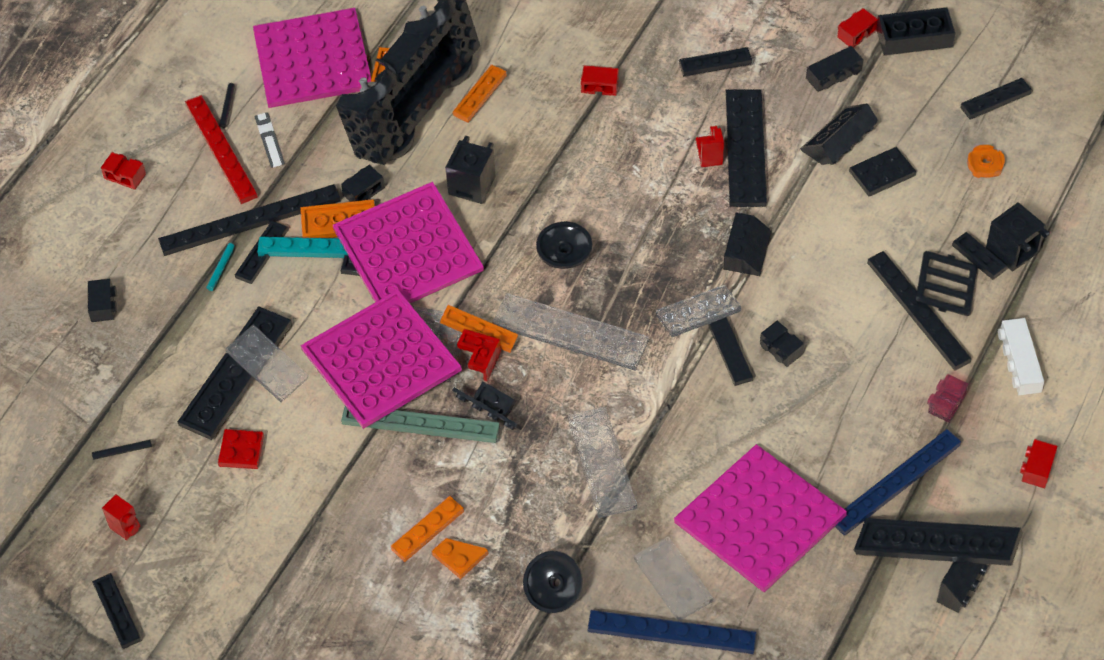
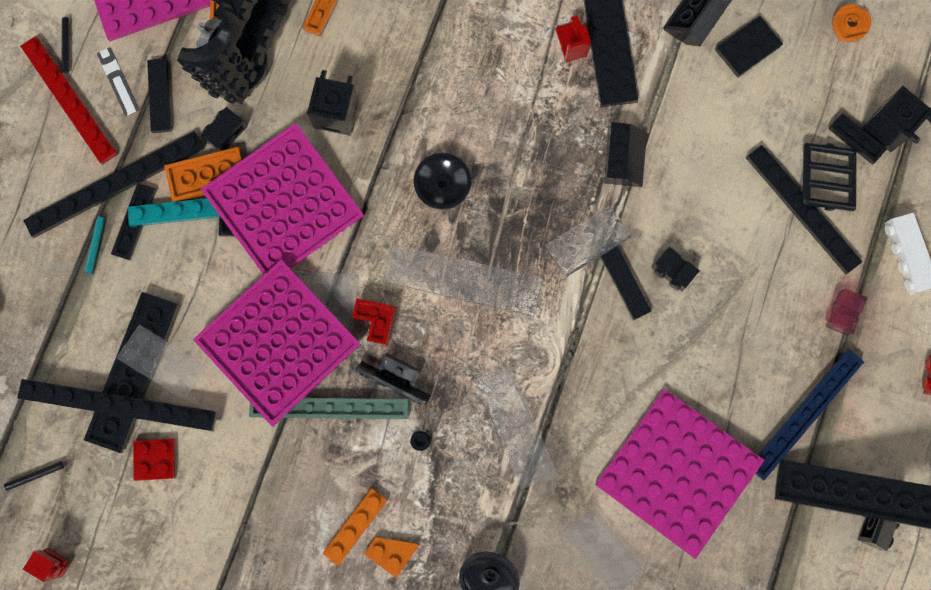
camera: 10 degrees left, 25 degrees up
(217, 394) = (117, 405): none -> black plate
(306, 154) = (159, 95): none -> black tile
(462, 320) = (370, 291): orange plate -> none
(504, 462) = (420, 440): none -> black plate

